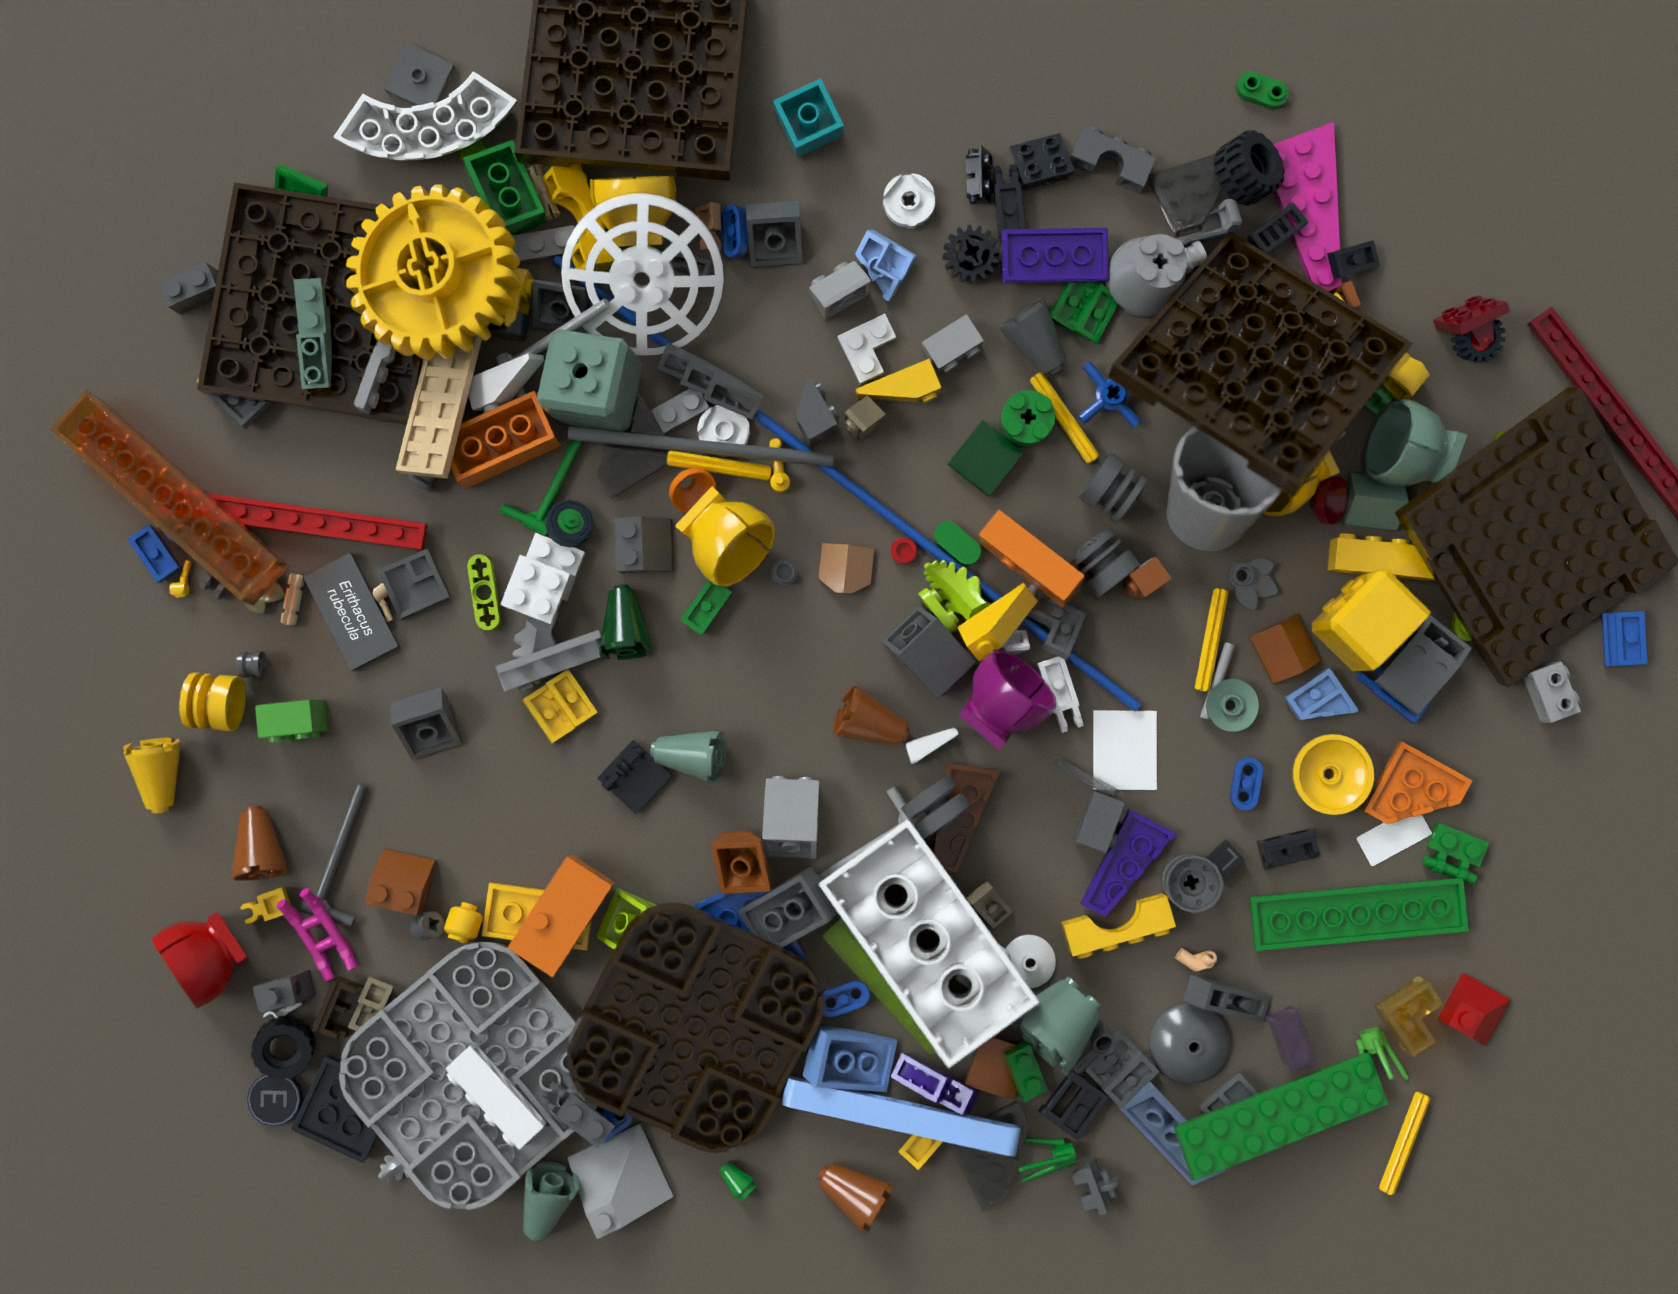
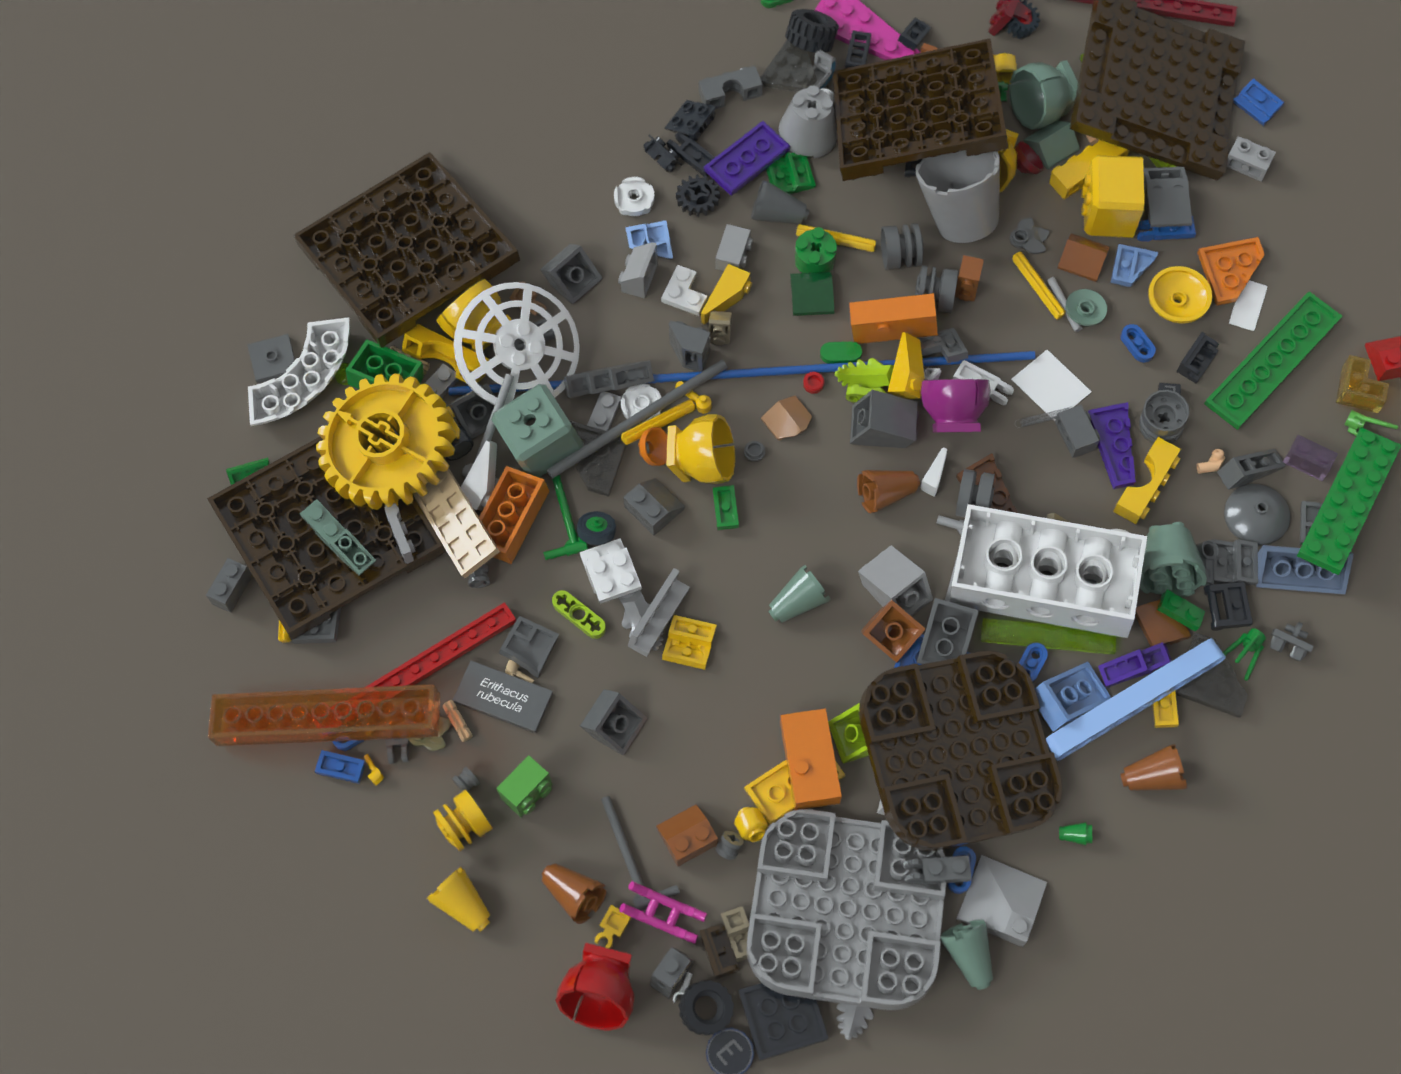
camera: 40 degrees left, 20 degrees down
(496, 1096) = (875, 902): white brick -> none
(624, 626) = (688, 557): dark green cone -> none
(634, 776) = (775, 644): black hinge -> none
(734, 231) = (549, 286): blue plate -> none
(808, 118) = (534, 197): teal brick -> none
(1103, 402) = (850, 204): blue bar -> none
(1457, 845) = (1287, 279): green plate -> none

